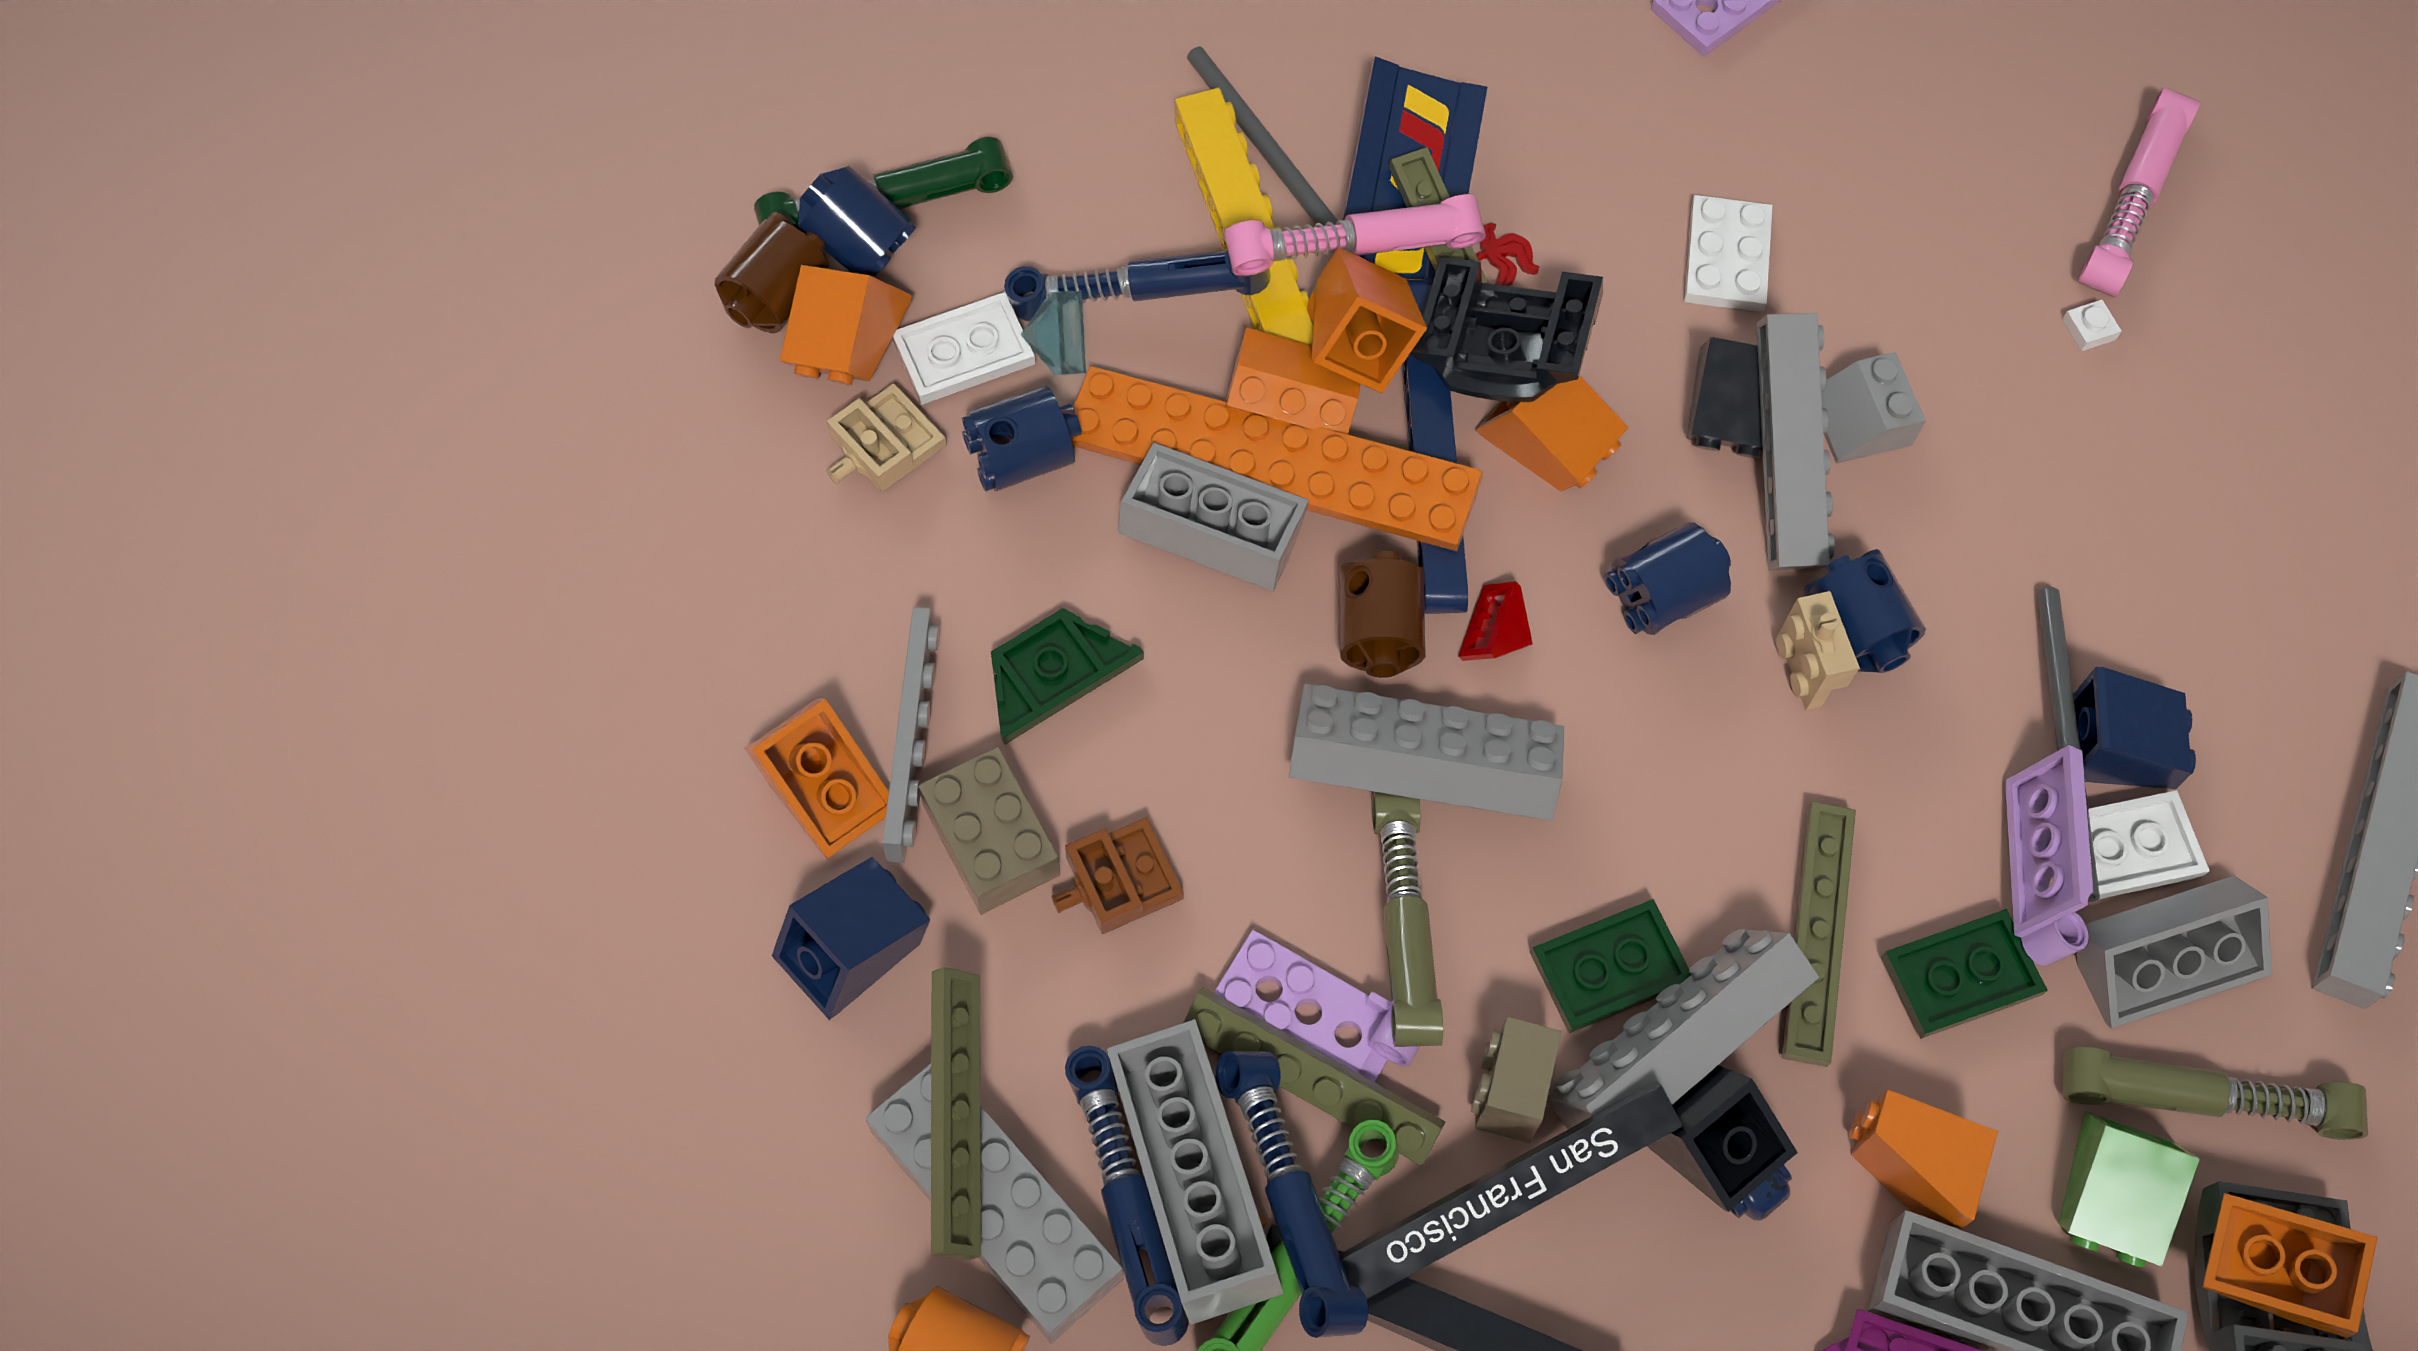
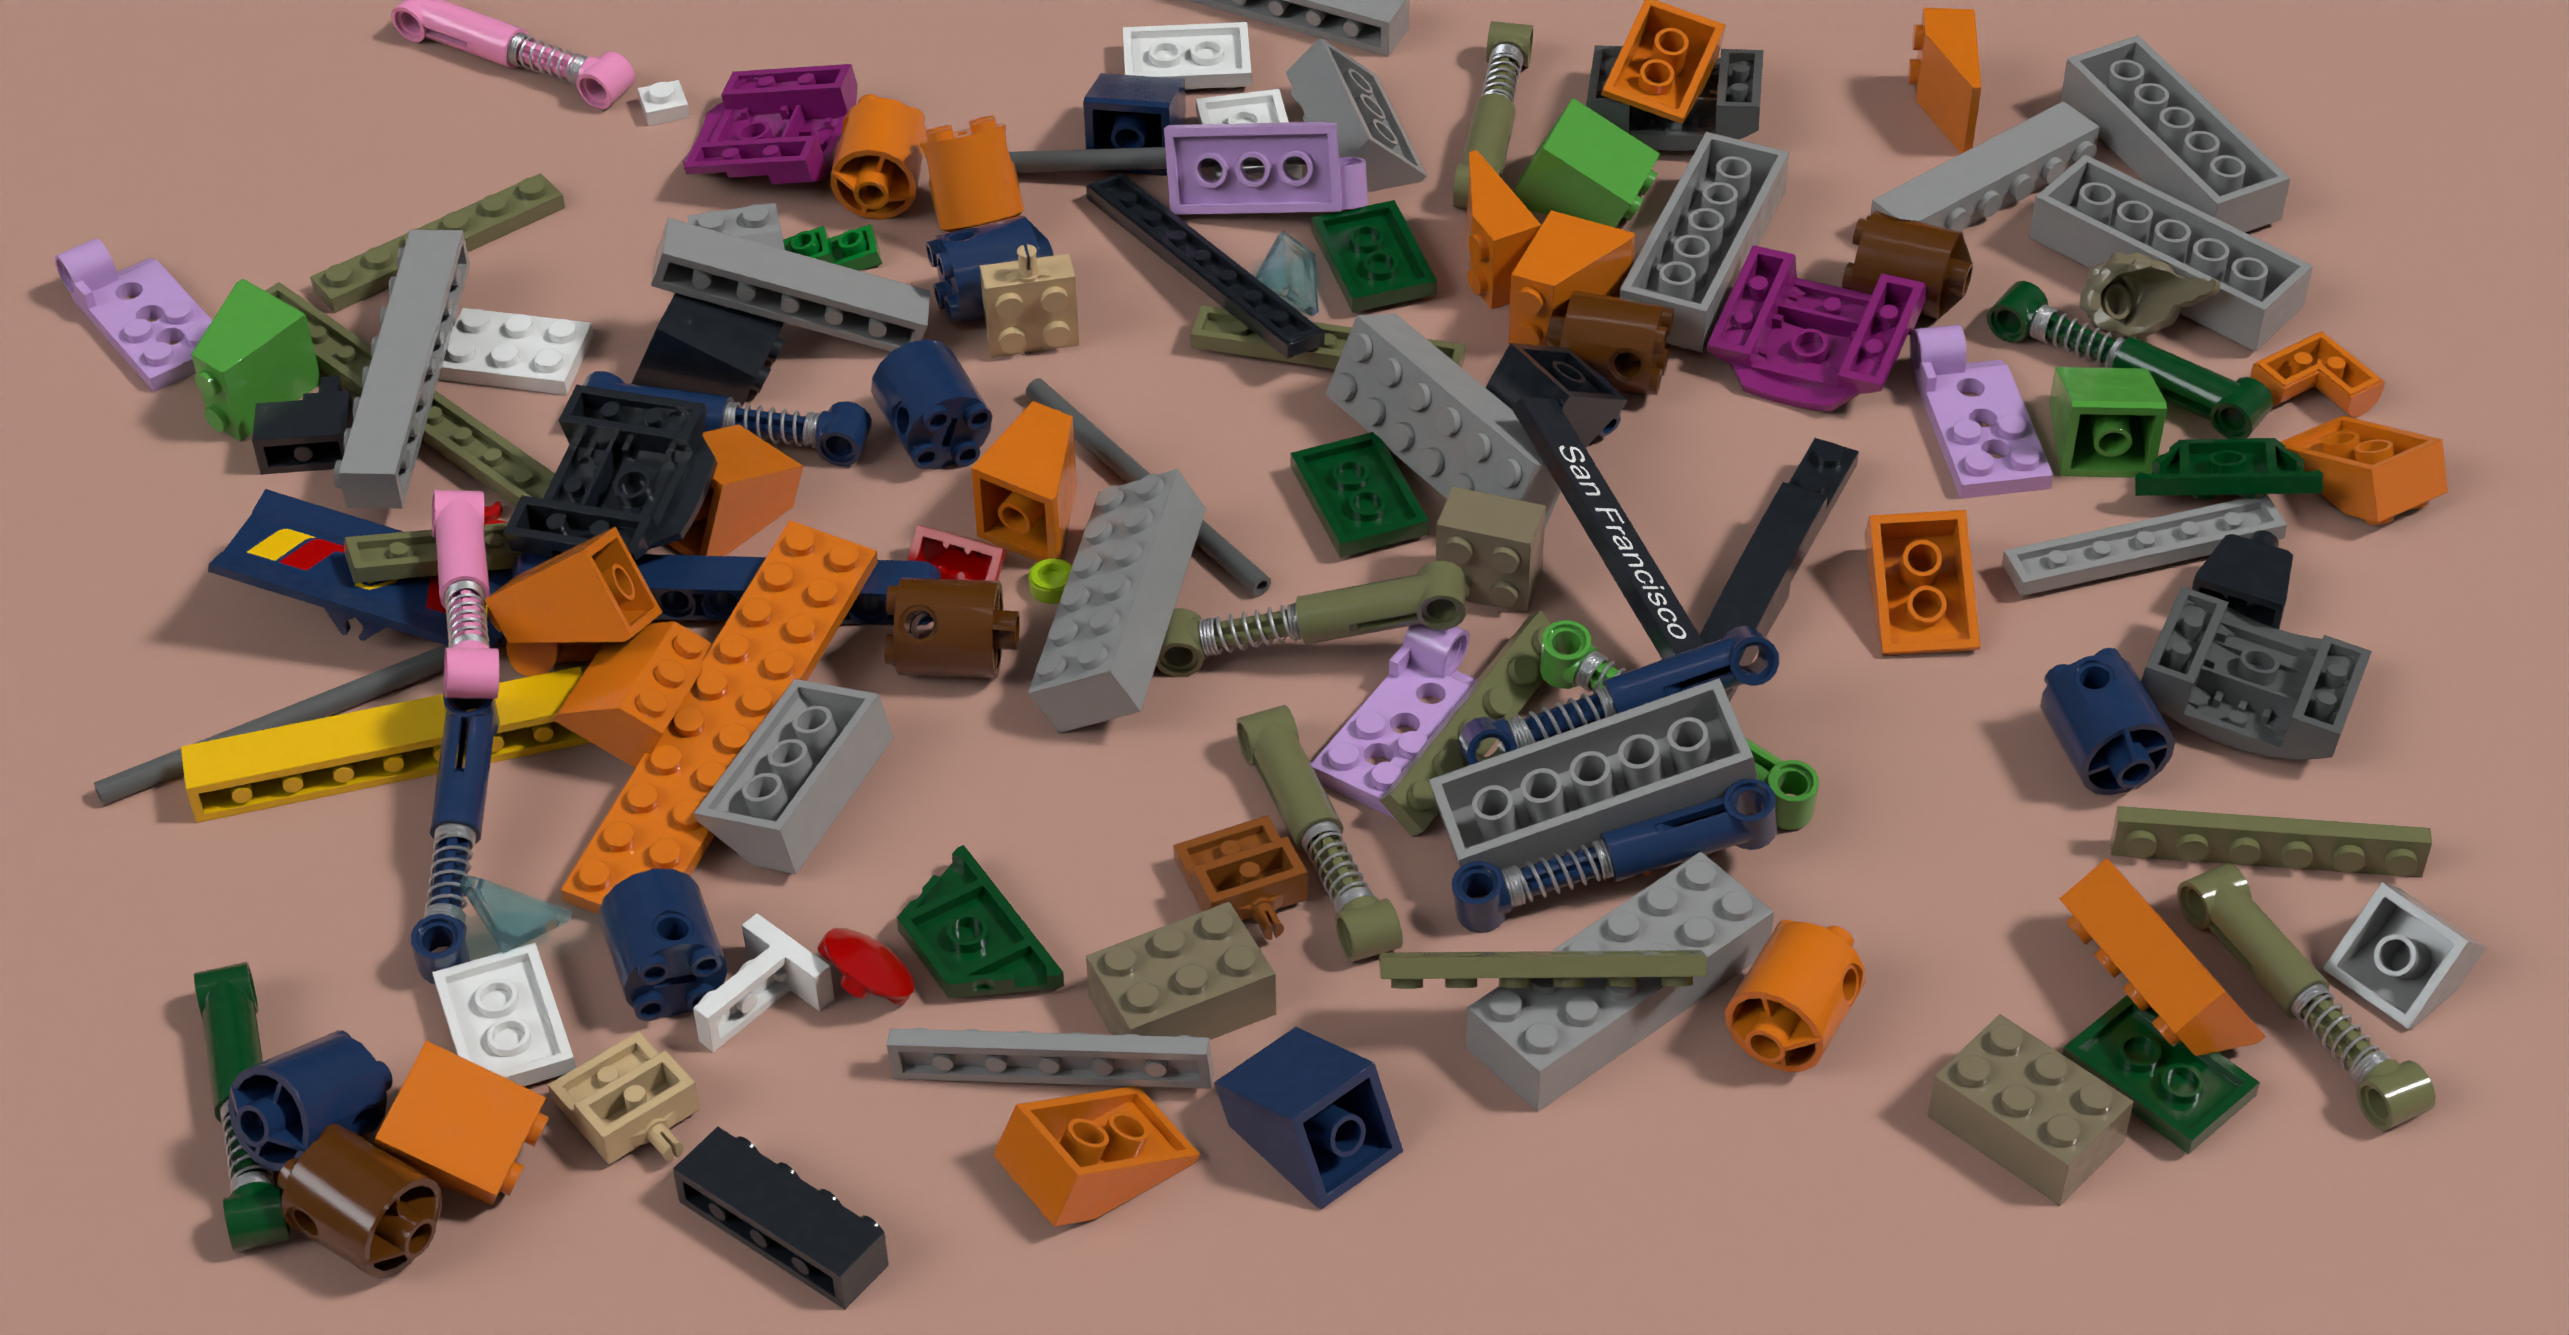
camera: 85 degrees left, 20 degrees down
(764, 556) = (782, 1216): none -> black brick
(1007, 590) = (867, 965): none -> red dish
(1011, 529) = (773, 969): none -> white bracket
(1273, 895) = (1273, 745): none -> olive piece
(1479, 698) = (1049, 580): none -> lime tile
(1573, 671) = (1028, 484): none -> orange slope
(1601, 120) = (303, 432): none -> black hinge
(1607, 778) = (1129, 471): none -> dark grey piece
(1657, 334) = (835, 433): none -> dark blue piece
(1658, 170) = (448, 427): none -> olive plate
(1662, 56) = (253, 355): none -> bright green slope
(1668, 166) = (403, 370): none -> light grey brick
(1837, 1205) = (1616, 339): none -> reddish brown cylinder
(1865, 178) = (481, 223): none -> olive plate
(1897, 487) = (852, 249): none -> green slope
(1915, 810) = (1205, 266): none -> black tile
(1923, 895) = (1291, 273): none -> clear light blue slope
(1987, 581) = (971, 175): none -> orange cylinder
(1993, 1079) = (1497, 232): none -> orange slope
(2015, 504) = (878, 157): none -> orange cylinder
(2052, 418) = (776, 124): none -> magenta slope
(2253, 781) = (1199, 53): none -> white plate

